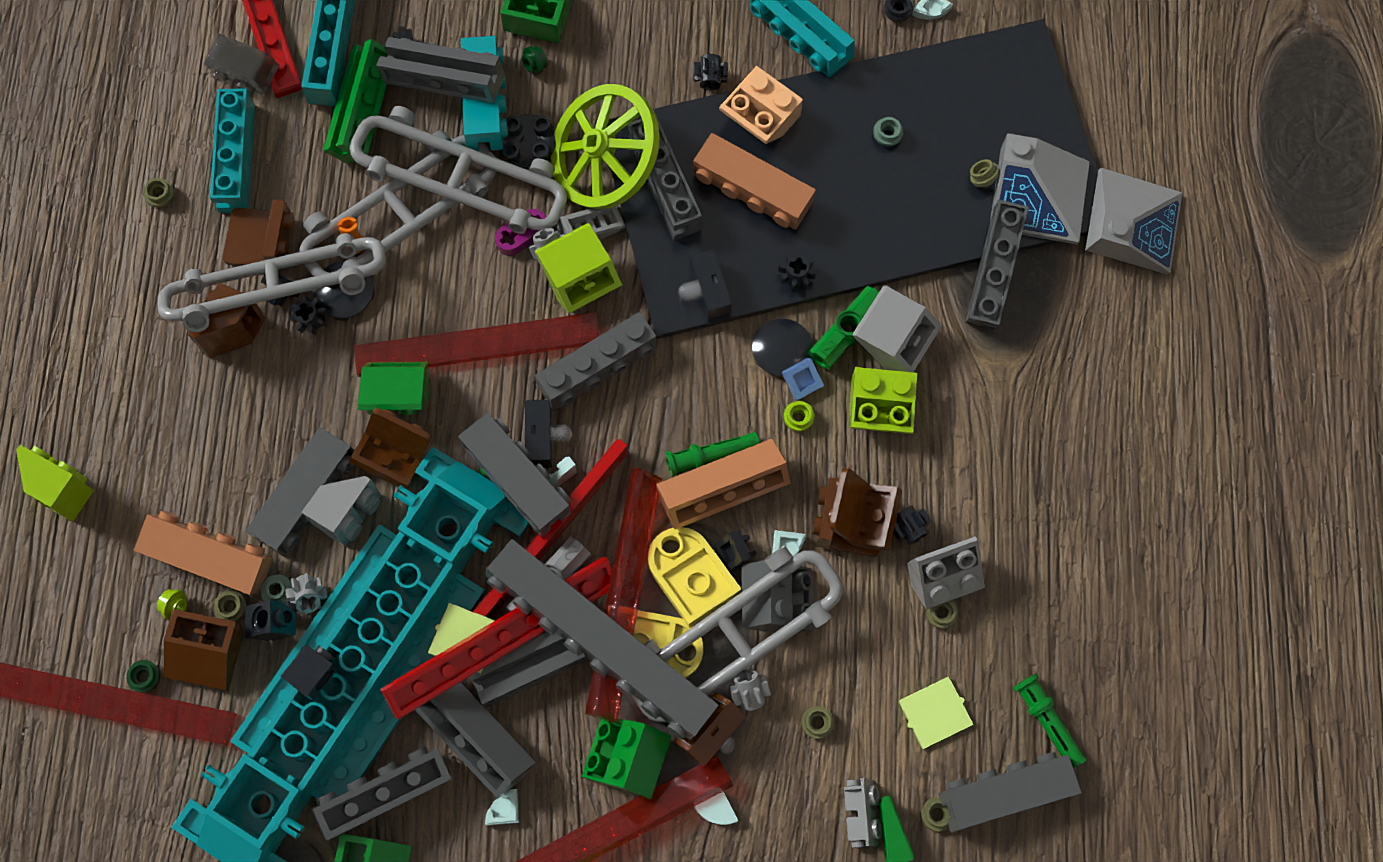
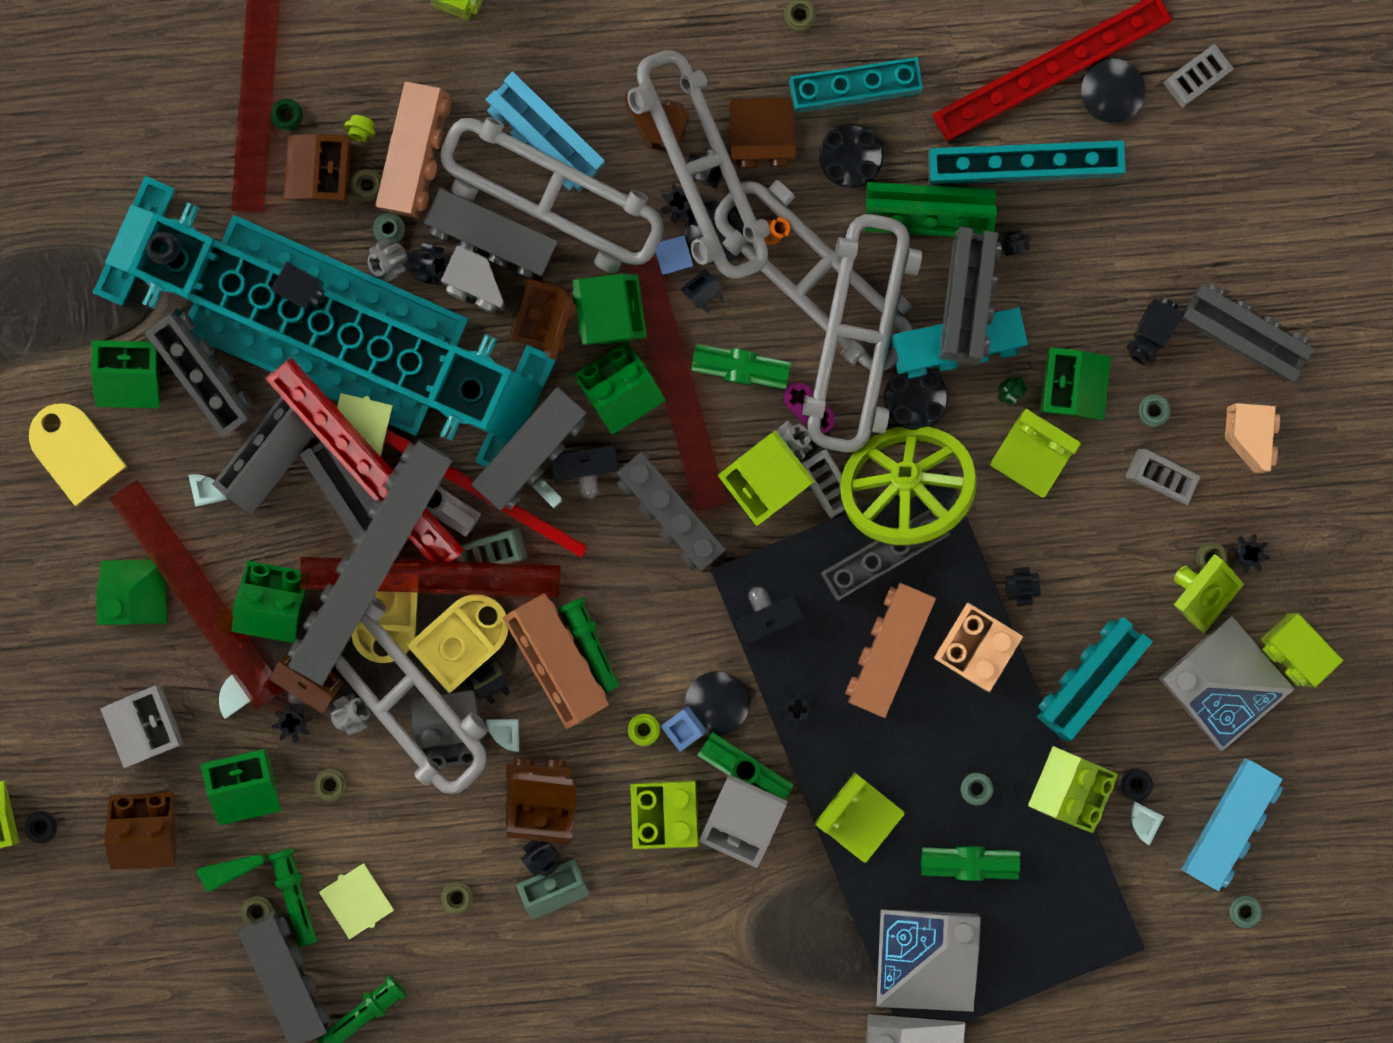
camera: 85 degrees right, 15 degrees up
(214, 429) = (542, 128): none -> medium azure brick
(231, 805) = (157, 241): none -> black plate
(240, 64) = (956, 73): clear smoke brick -> none
(248, 505) = (468, 183): none -> light grey bar
(270, 620) = (354, 230): black brick -> none
(296, 165) = (851, 155): none -> black dish
(317, 554) = (428, 263): none -> black gear
(356, 330) = (673, 255): none -> medium blue tile
(393, 308) = (701, 289): none -> black tile
(470, 391) = (619, 387): none -> green slope
(471, 283) = (740, 366): none -> green piece
(590, 46) = (1034, 453): none -> lime bracket
(606, 510) = (516, 542): none -> sand green slope
(757, 744) = (288, 730): none -> black gear
(809, 810) = (241, 786): none -> green slope
(864, 800) = (233, 843): light grey hinge -> none
(897, 51) = (1073, 790): none -> lime slope
(902, 232) = (859, 817): none -> lime bracket
(910, 776) = (289, 882): none -> green pin
(946, 523) = (549, 893): none -> sand green slope
(947, 573) = (491, 897): light grey slope -> none
(955, 144) = (970, 863): none -> green piece
(984, 173) = (939, 897): olive plate -> none
(997, 264) = (832, 919): dark grey brick -> none

